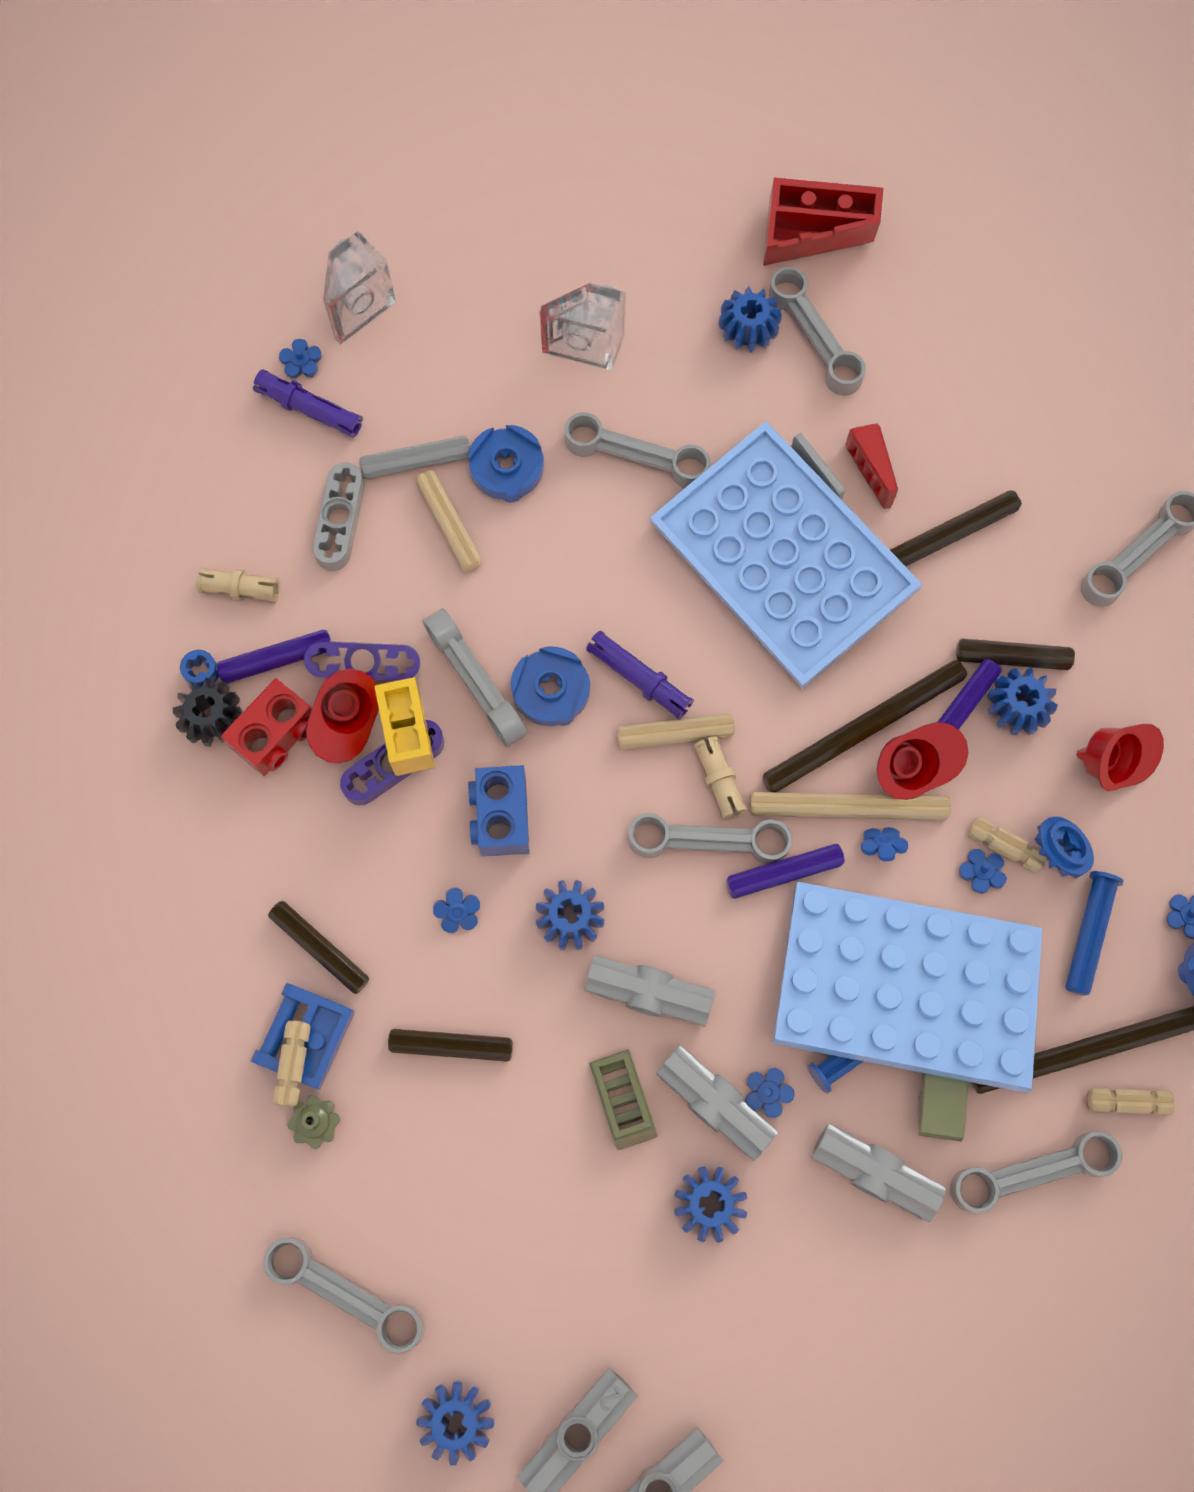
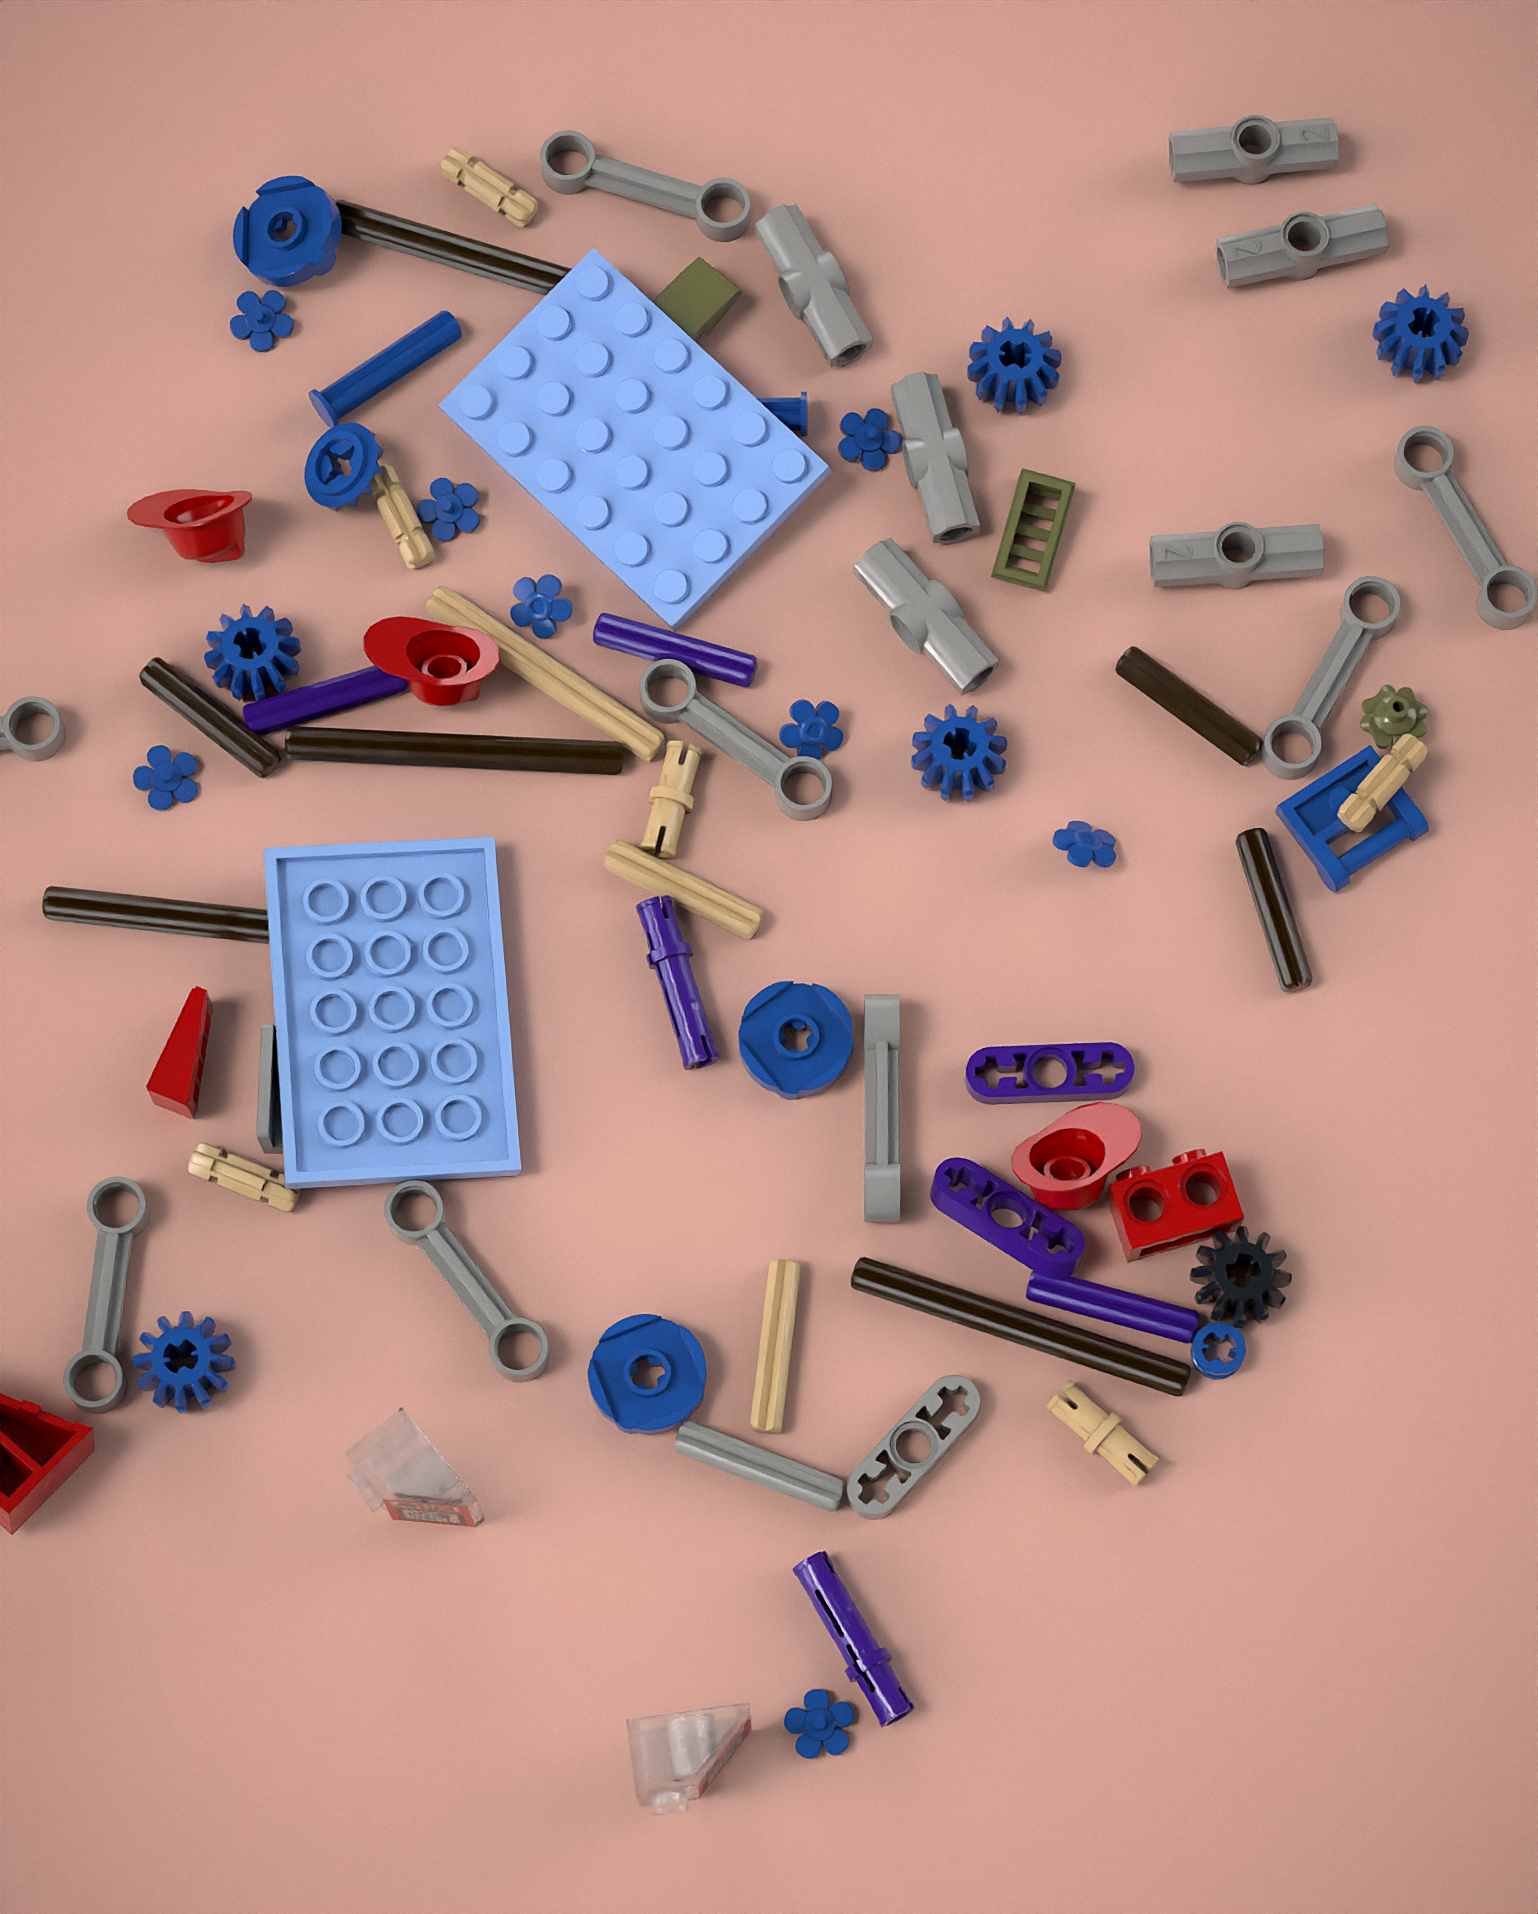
camera: 145 degrees left, 0 degrees up
(319, 613) = (1021, 1326): none -> dark brown axle
(371, 1125) = (1330, 677): none -> light grey piece
(404, 726) = (1012, 1071): yellow brick -> none
(458, 1185) = (1271, 553): none -> light grey piece
(507, 810) = (948, 917): blue brick -> none
(668, 873) = (812, 728): none -> blue plant
(816, 424) = (242, 1177): none -> tan axle
(1010, 608) = (166, 777): none -> blue plant

